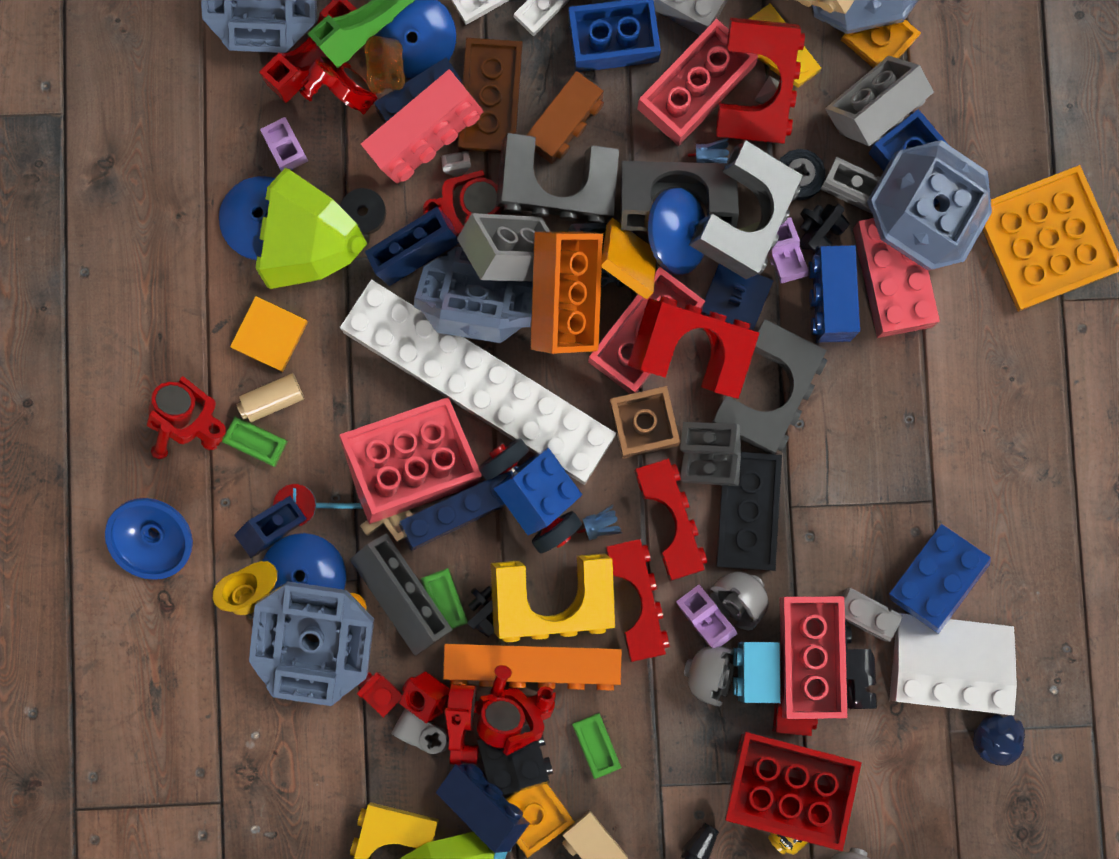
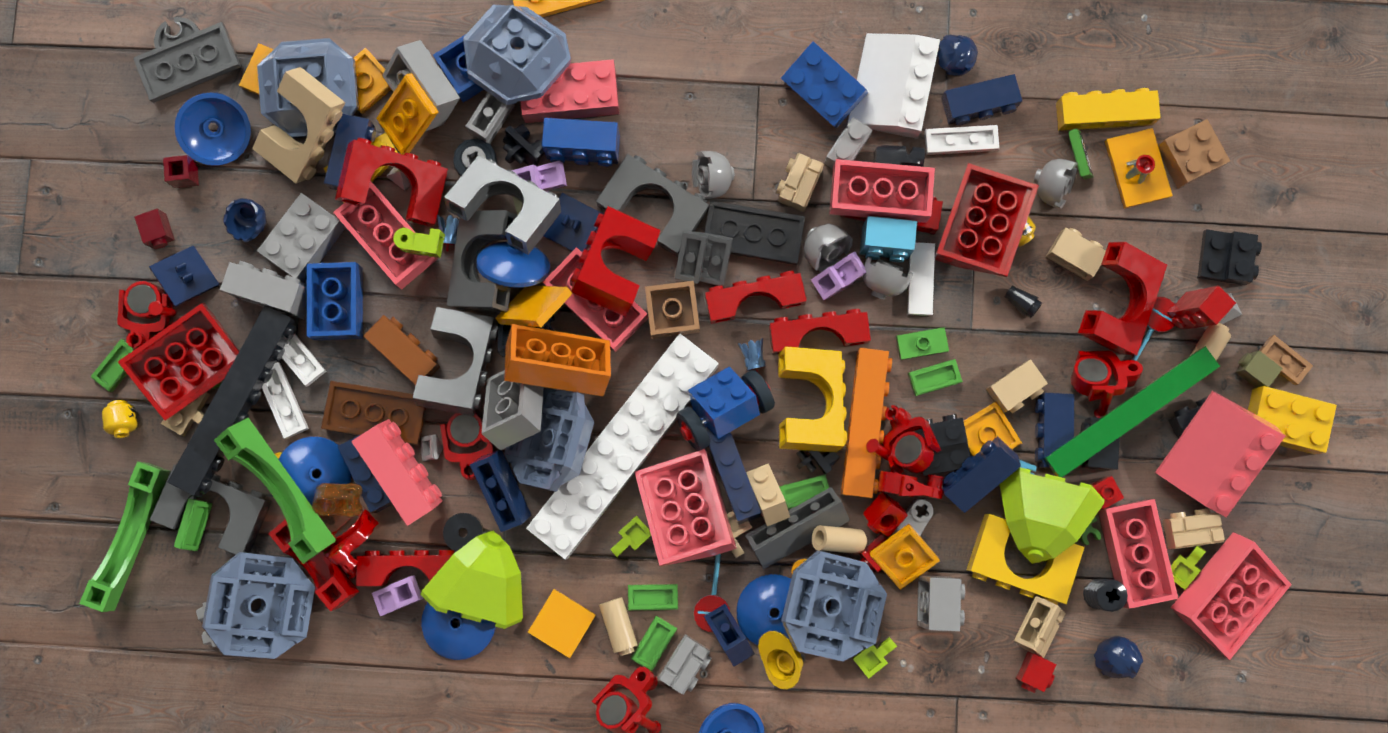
camera: 80 degrees left, 0 degrees up
(232, 478) = (685, 664): none -> light grey brick
(256, 698) = (872, 658): none -> lime plate
(307, 435) = (653, 597): none -> bright green tile
(312, 119) = (377, 569): none -> red arch
(324, 768) = (940, 603): none -> light grey brick
(376, 404) = (633, 535): none -> lime plate
(378, 724) = (904, 556): none -> light orange tile
(390, 644) = (839, 539): none -> tan brick
(435, 555) = (768, 495): none -> tan brick
(636, 727) = (922, 343): none -> bright green plate
(688, 120) = (419, 243): none -> lime leg
(714, 720) = (922, 282): none -> white tile
(814, 23) = (348, 129): none -> dark blue brick
(814, 454) = (712, 174): none -> light grey cylinder
(816, 560) = (800, 182): none -> tan brick
(843, 88) = (407, 114): none -> light orange tile
(893, 755) = (961, 139): none -> white plate
(945, 776) = (981, 100): none -> dark blue brick

